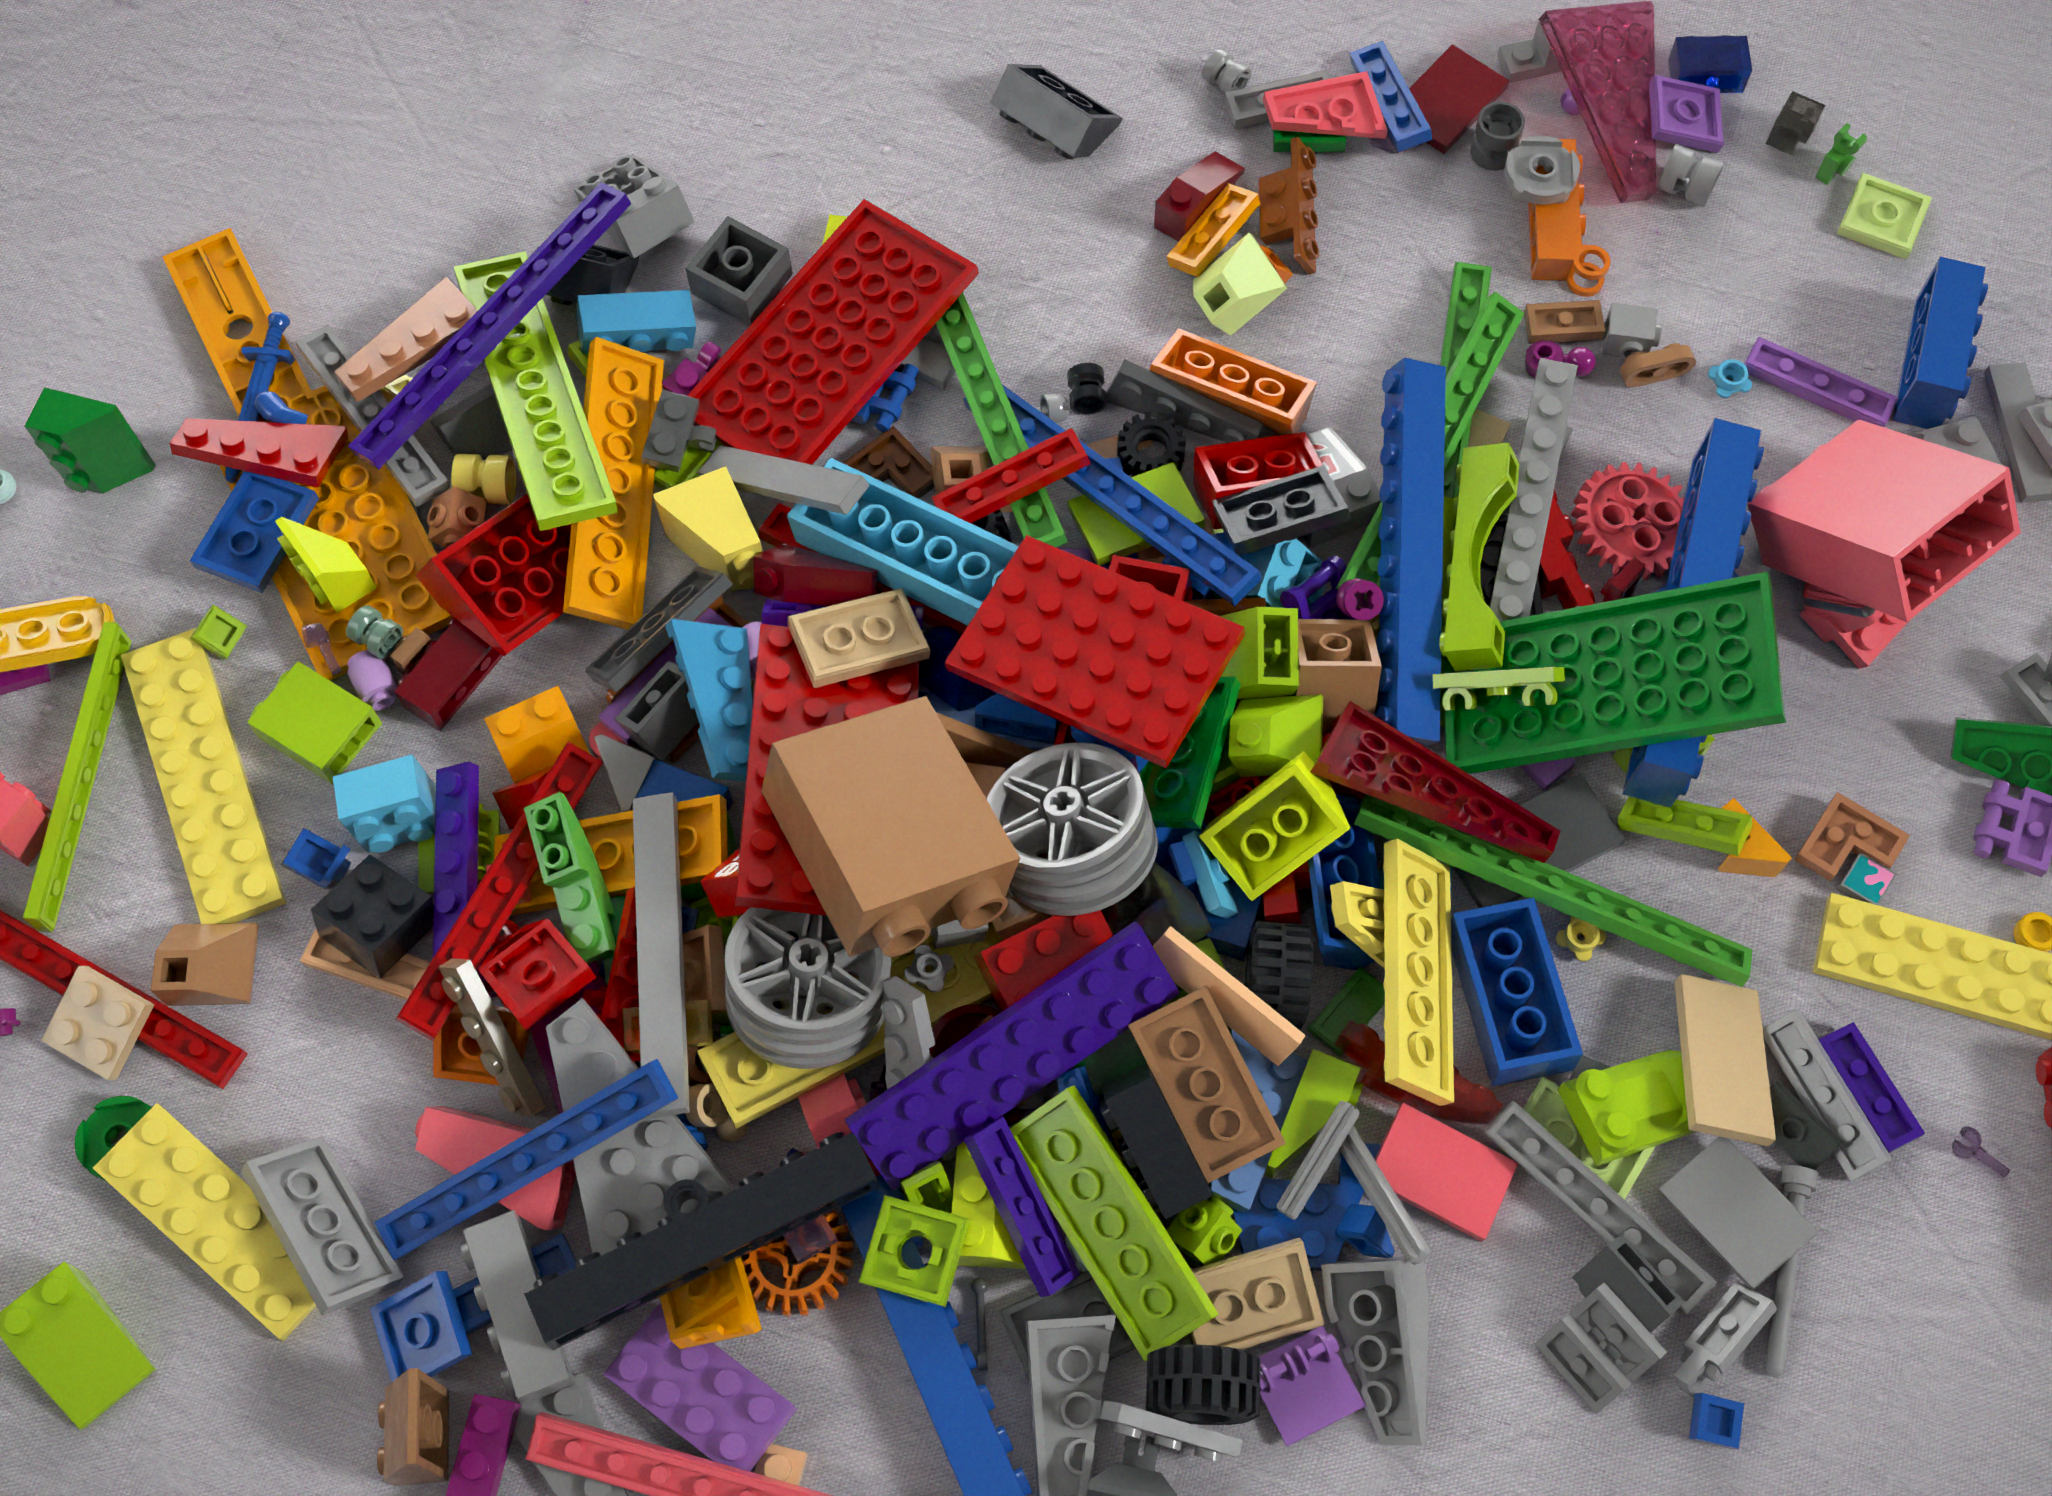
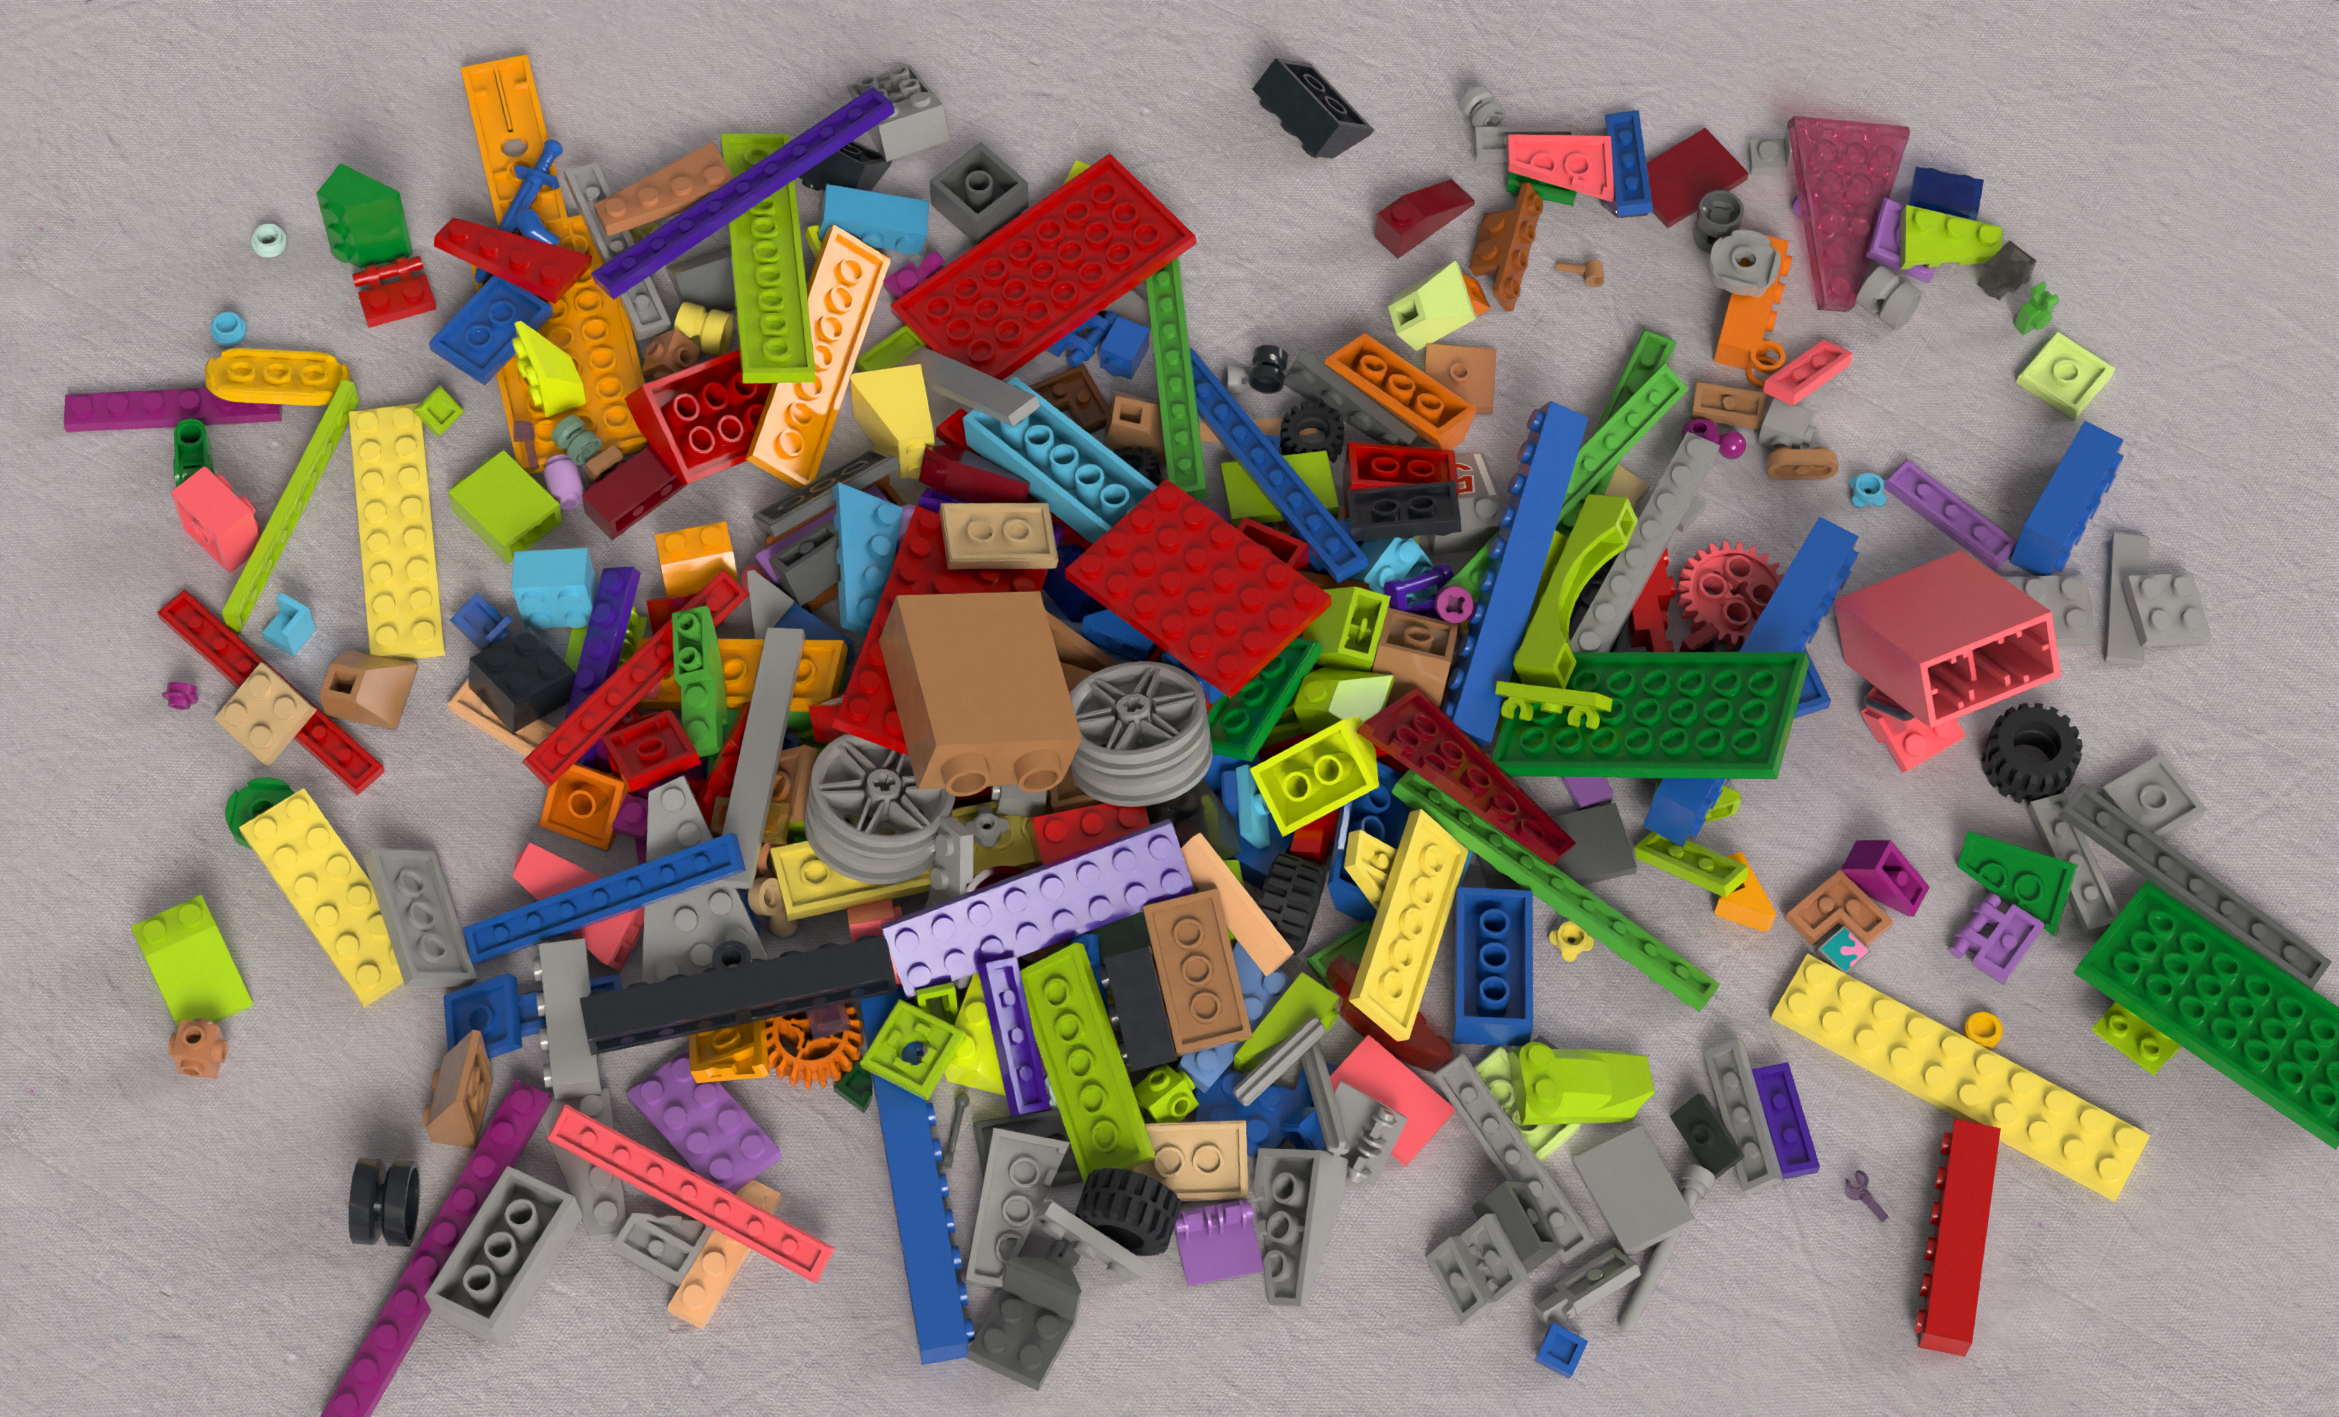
camera: 10 degrees right, 5 degrees down
(99, 1445) = (198, 1048): none -> nougat brick
(105, 914) = (290, 626): none -> medium azure panel
(147, 520) = (397, 299): none -> red plate
(485, 1025) = (597, 787): dark tan plate -> none
(534, 1047) = (632, 818): none -> magenta plate
(674, 431) = (883, 324): dark grey plate -> none
(858, 1300) = (856, 1087): none -> dark green tile
(932, 400) = (1124, 348): none -> blue brick
(1014, 478) = (1174, 430): red plate -> none
(1213, 230) = (1427, 251): light orange plate -> none
(1287, 345) = (1465, 372): none -> nougat plate
(1384, 212) = (1592, 270): none -> medium nougat hand
(1440, 1215) = (1370, 1130): none -> light grey hinge
(1635, 269) = (1807, 372): none -> coral plate
(1724, 1060) = (1660, 1064): tan tile -> none
(1725, 103) = (1942, 238): none -> lime wing
(1884, 786) = (1885, 875): none -> magenta slope
(2006, 596) = (2039, 729): none -> black tyre

